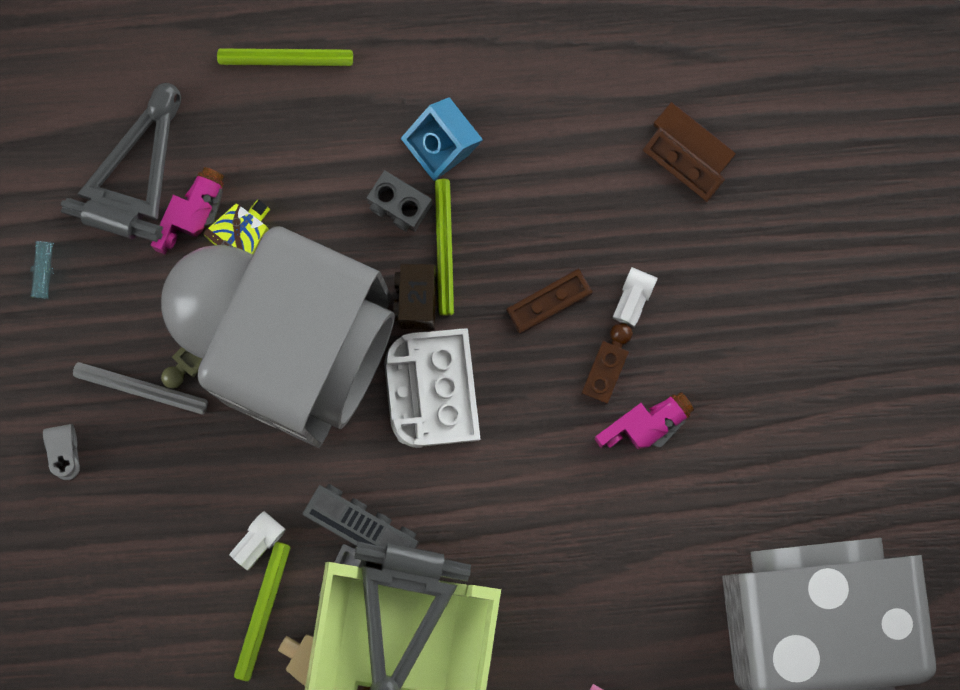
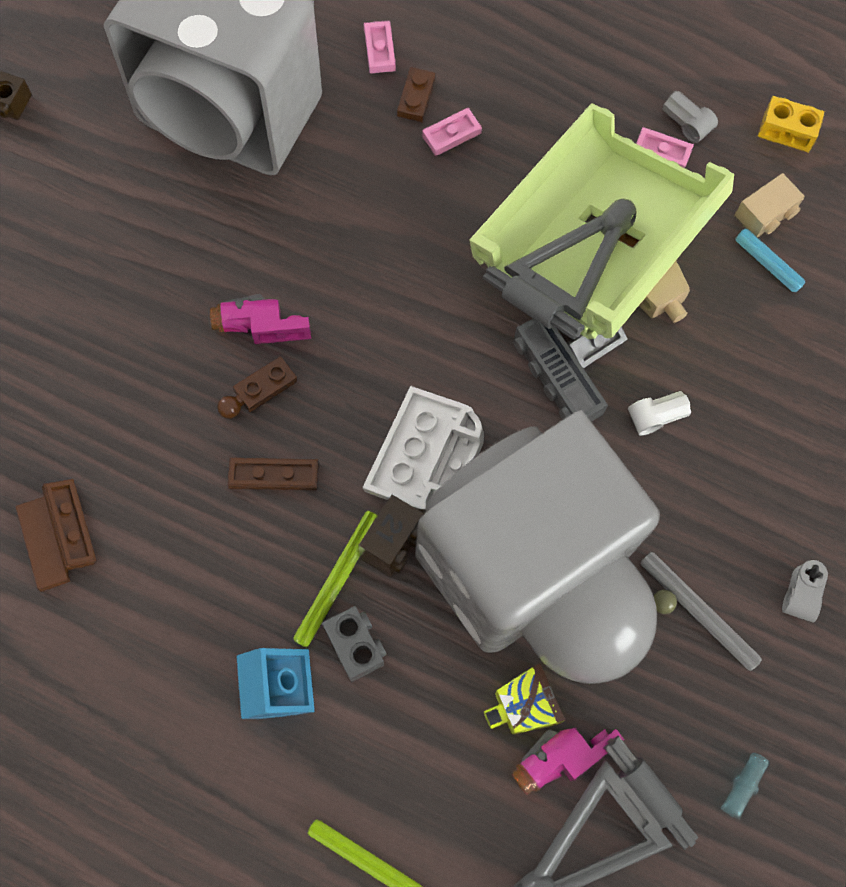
camera: 160 degrees left, 10 degrees down
(262, 611) = (684, 354): lime axle -> none
(636, 291) = (189, 435): white piece -> none

